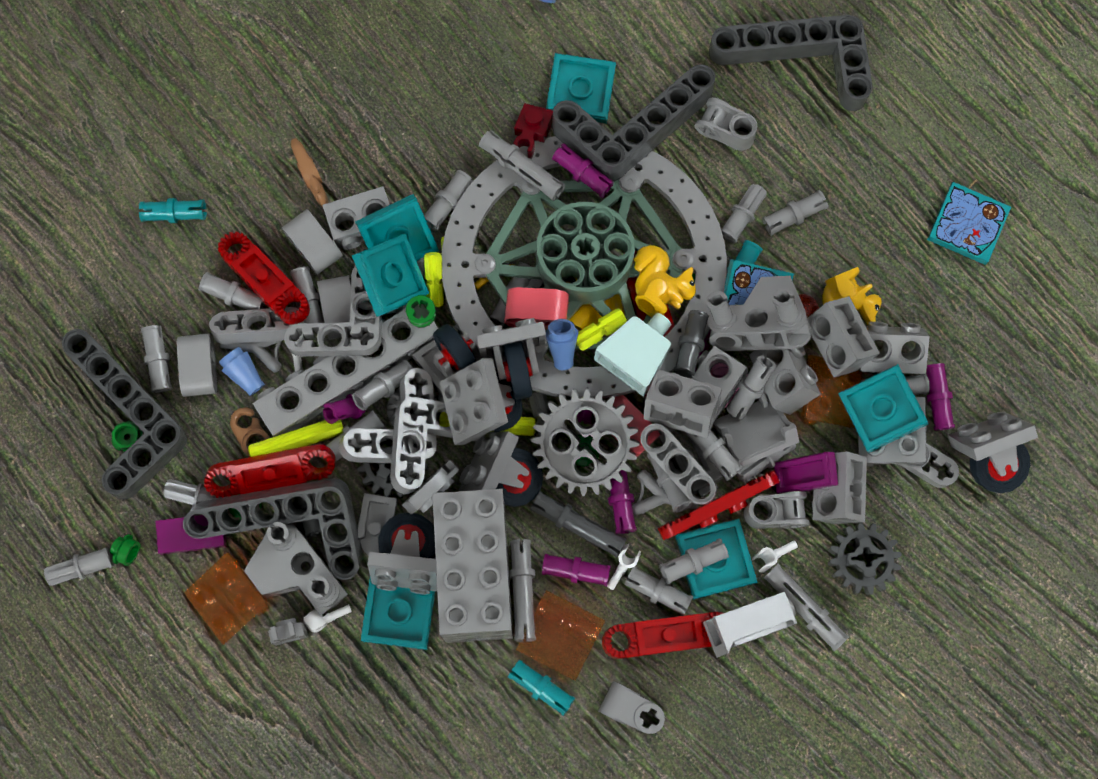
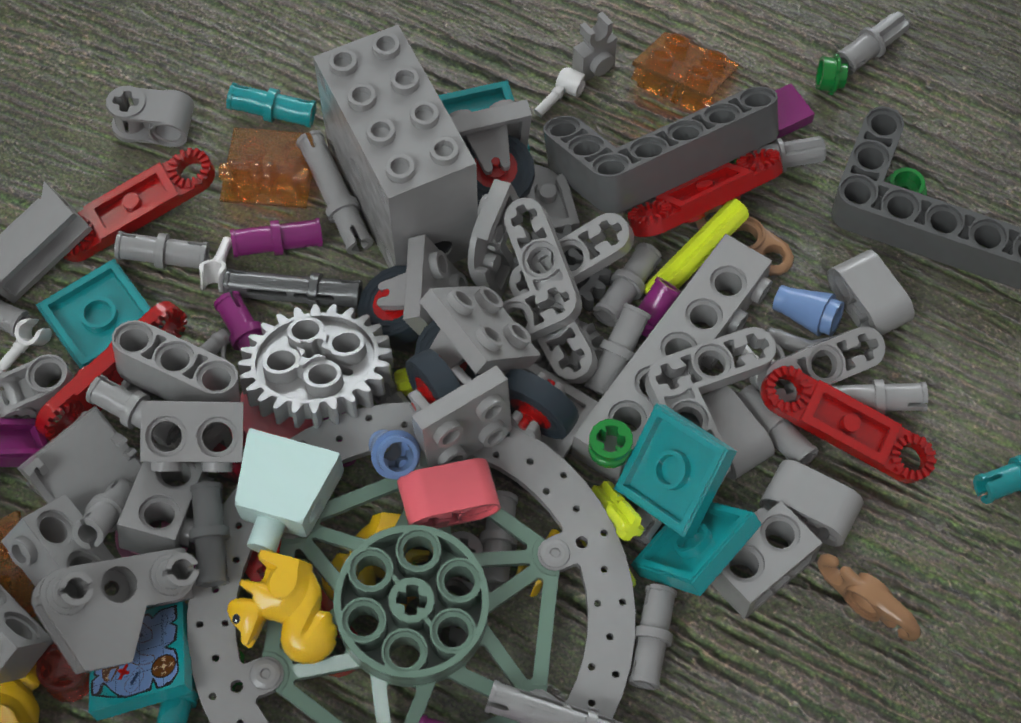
camera: 160 degrees right, 15 degrees down
(156, 358) = (925, 284): light grey pin -> none
(279, 563) = (622, 112): light grey piece -> none
(606, 326) = (342, 513): neon yellow piece -> none
(693, 561) = (124, 287): light grey pin -> none

